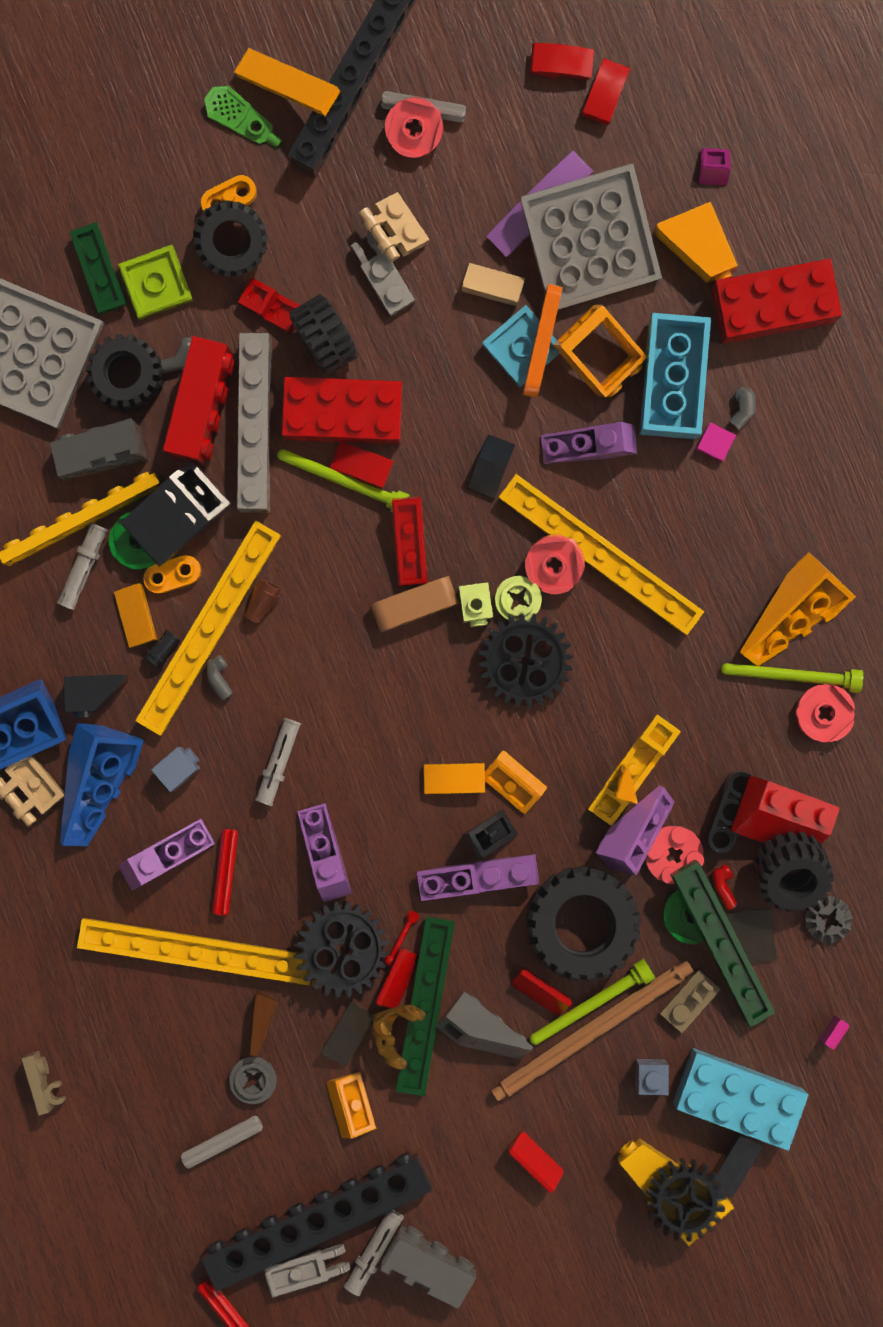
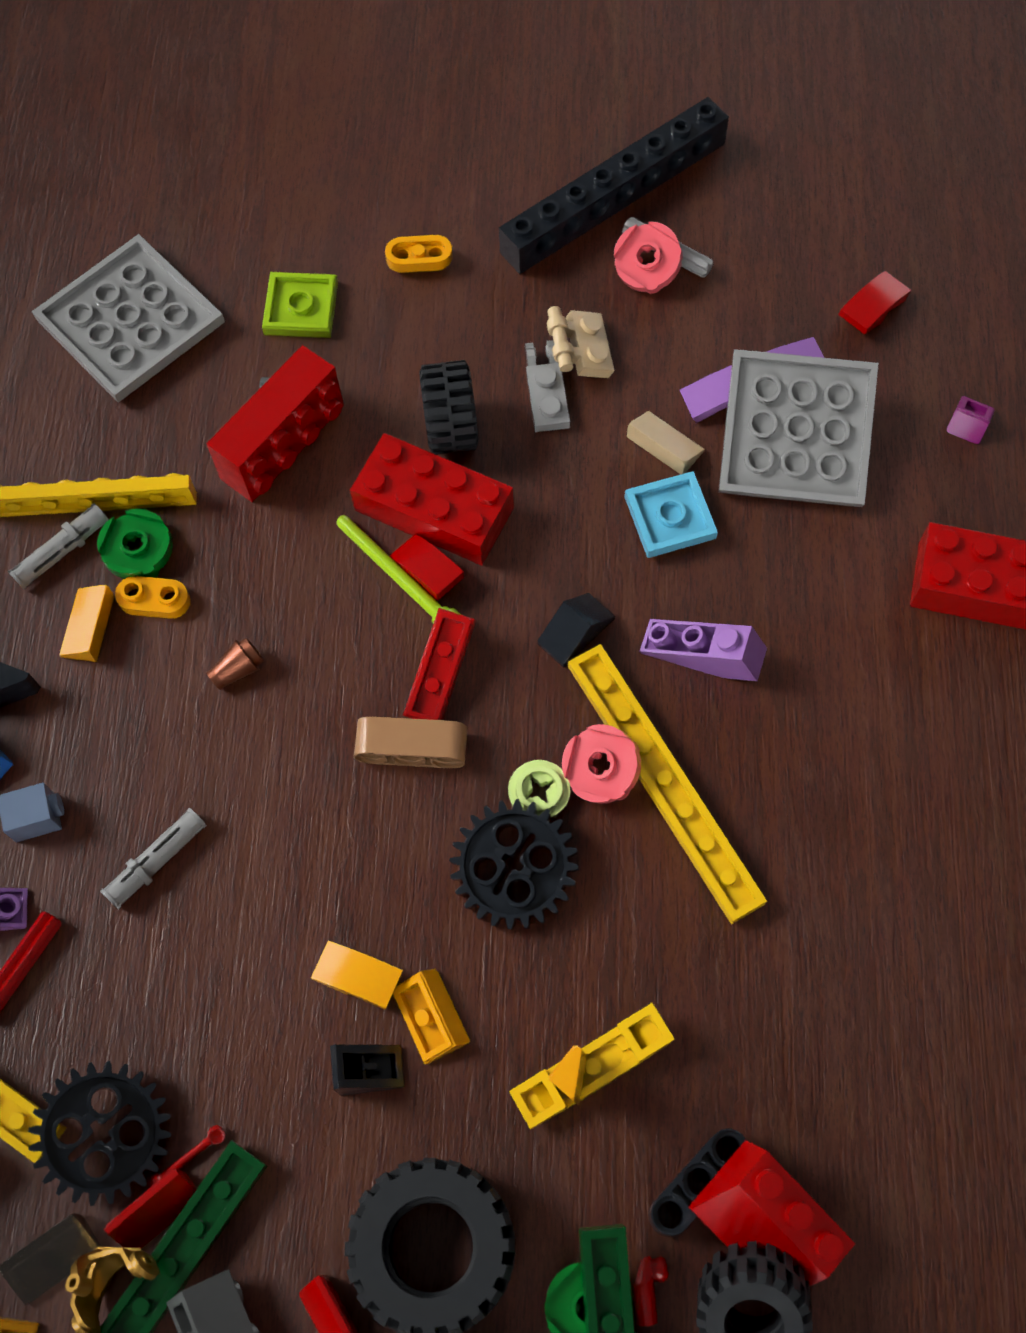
camera: 25 degrees right, 20 degrees down
(98, 268) = (247, 268): dark green plate -> none
(98, 450) = (147, 433): dark grey wedge -> none
(108, 356) = (209, 348): black tyre -> none
(161, 648) = (93, 670): black pin -> none
(175, 513) = (188, 525): black slope -> none
(208, 628) = (155, 671): yellow plate -> none
(215, 678) = (135, 727): dark grey arm -> none
(244, 119) = (467, 187): bright green piece -> none
(253, 250) = (390, 256): black tyre -> none
(253, 422) = (299, 520): light grey arch -> none
(268, 304) = (403, 365): red slope -> none
(287, 81) = (534, 167): light orange tile -> none
(324, 853) = (146, 1000): medium lavender slope -> none
(476, 604) = (484, 771): yellowish green brick -> none
(478, 877) = (324, 1118): medium lavender slope -> none
(542, 340) = (694, 509): orange beam -> none
(561, 60) = (830, 252): red slope -> none
(575, 334) = (789, 539): light orange window -> none
(634, 834) = (557, 1152): medium lavender slope -> none
(675, 376) = (837, 610): medium azure brick -> none
(678, 839) = (592, 1182): coral plate -> none
(699, 242) = (921, 481): light orange slope -> none
(716, 442) = (860, 709): dark pink tile -> none
(747, 407) = (914, 685): dark grey arm -> none
(801, 601) = (897, 945): light orange wedge -> none
(825, 696) = (867, 1126): coral plate -> none
(848, 680) = (931, 1076): lime piece -> none

